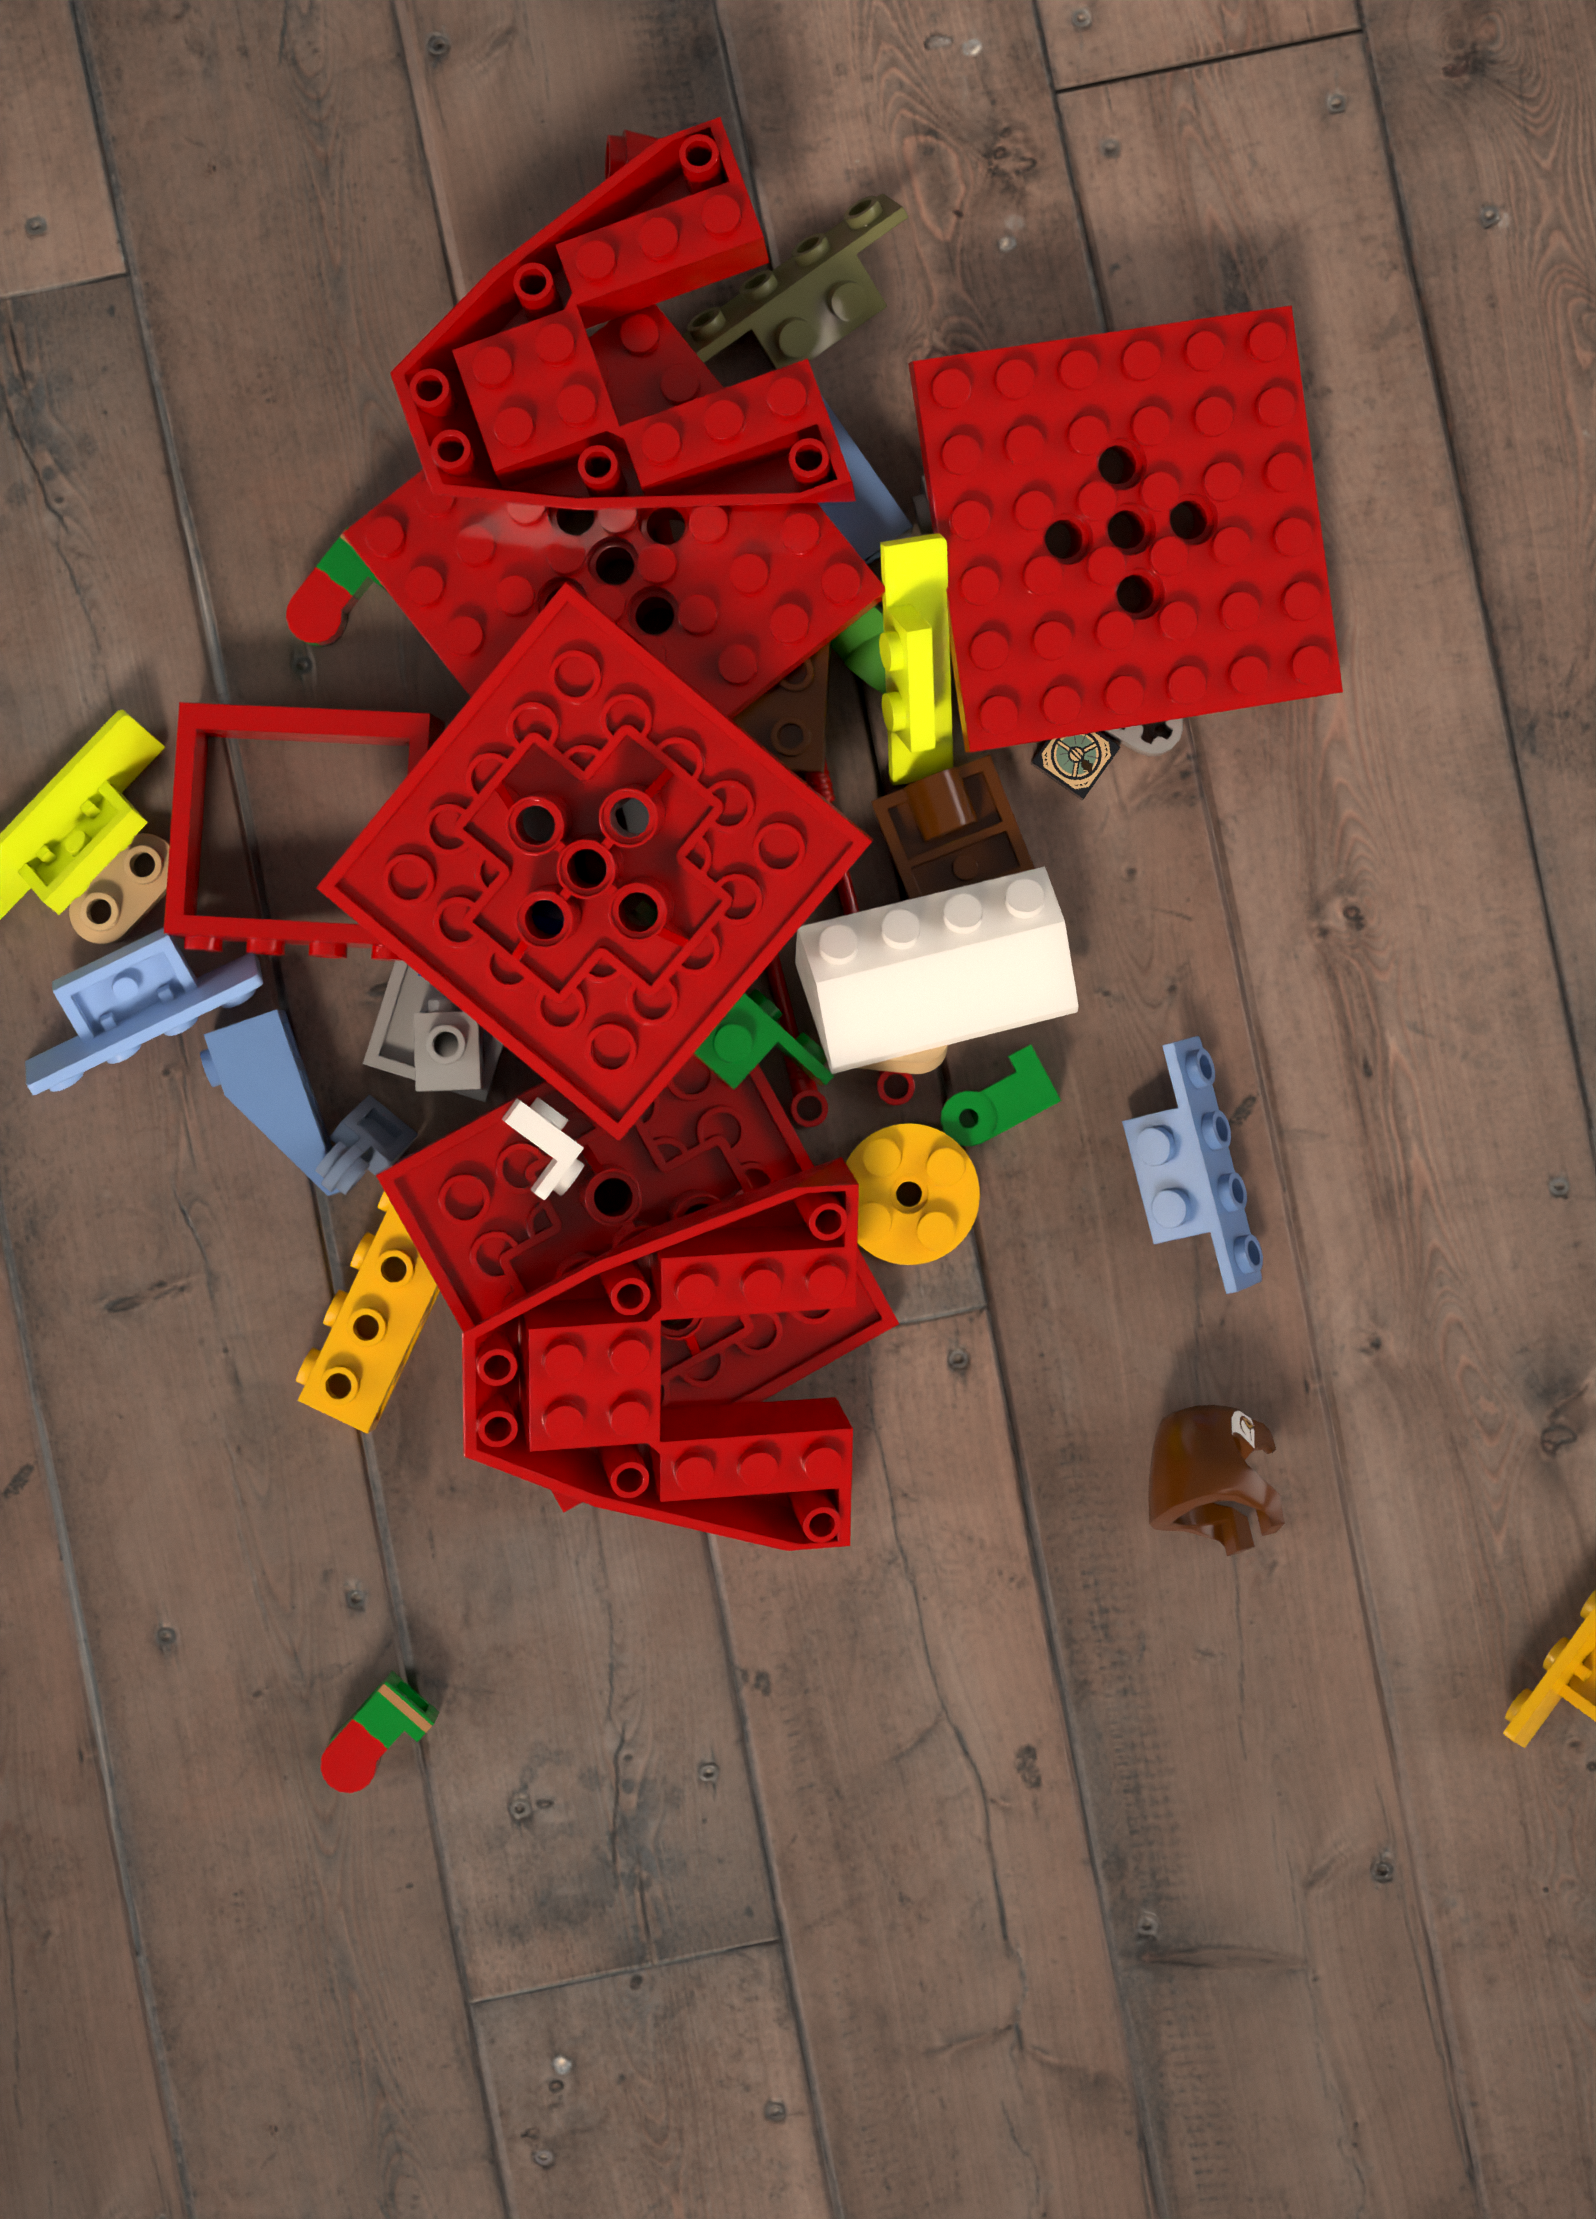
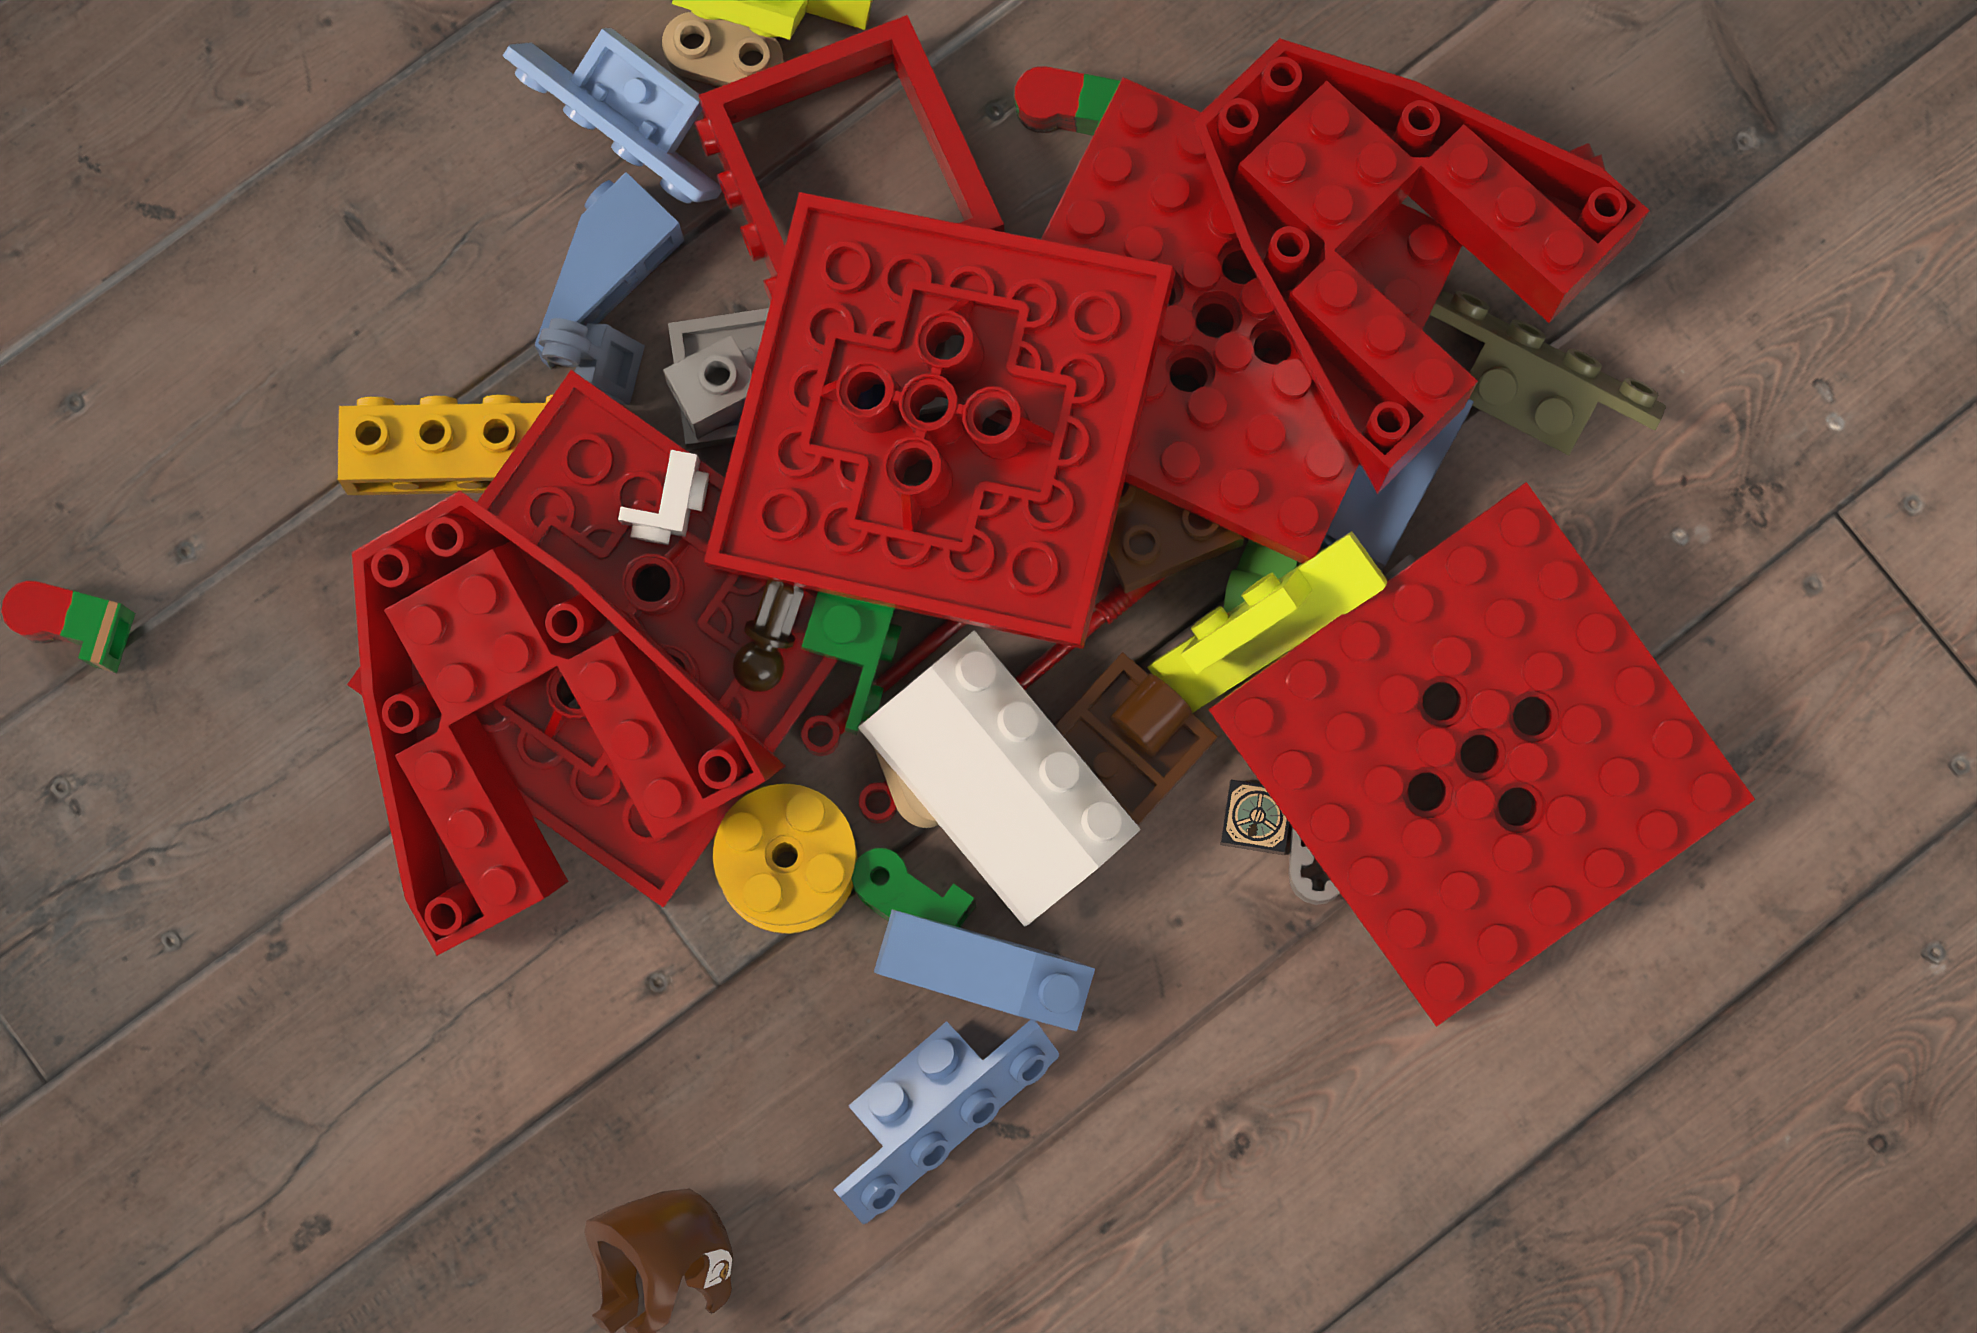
camera: 65 degrees right, 10 degrees down
(726, 1132) = (759, 663): none -> dark brown axle
(1103, 1065) = (985, 970): none -> medium blue slope

